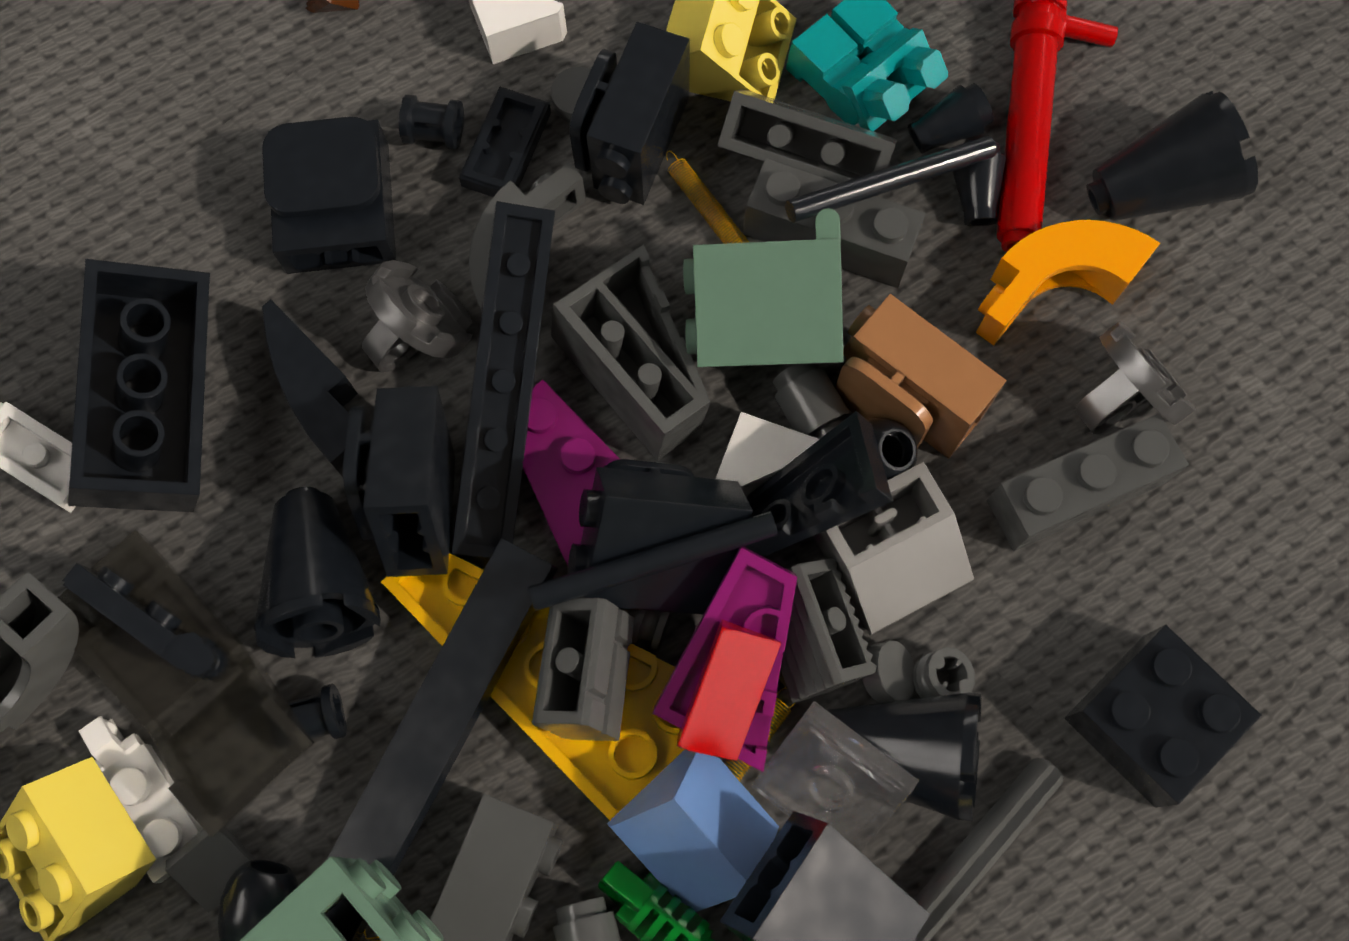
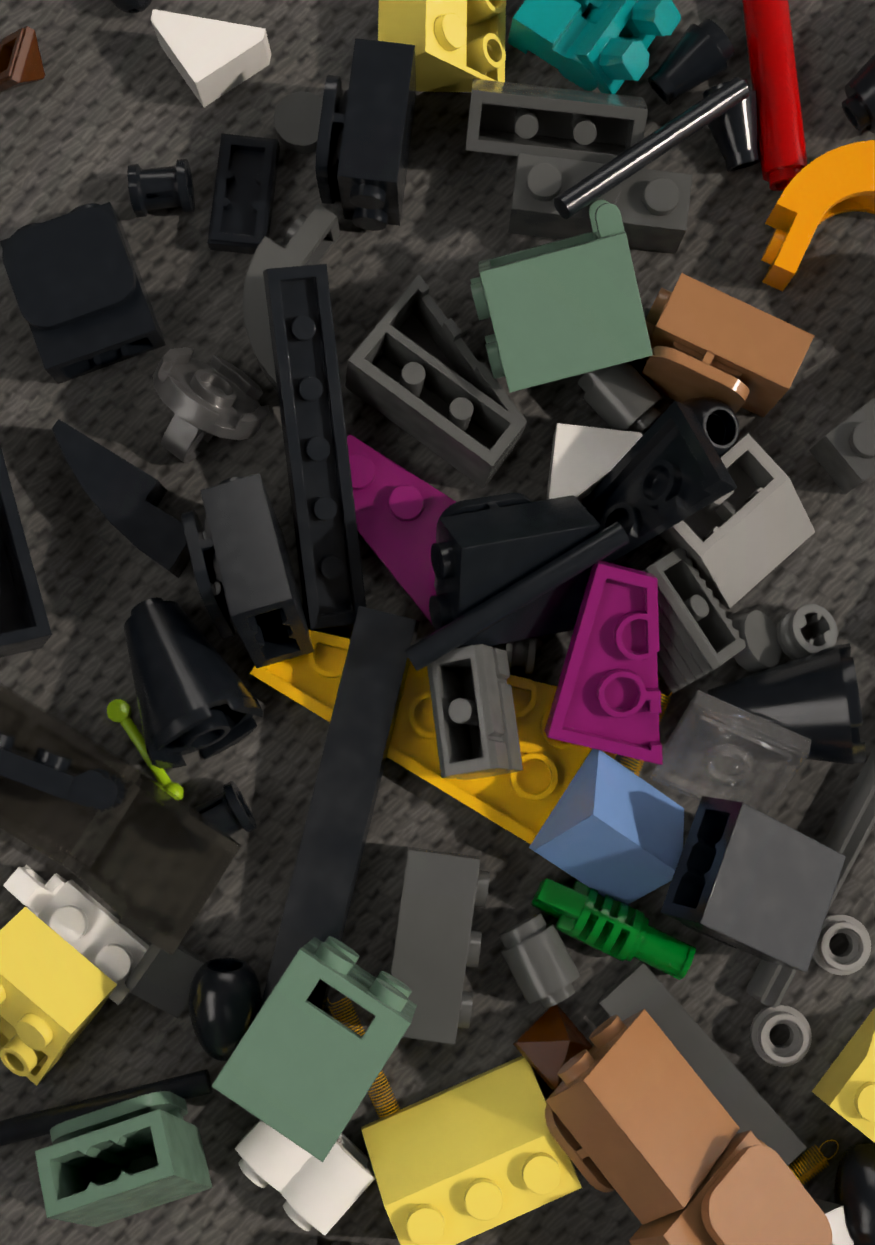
camera: 15 degrees left, 10 degrees up
(248, 591) = (120, 712): none -> lime hinge
(721, 213) = (473, 209): yellow piece -> none
(728, 691) = (615, 701): slope -> none

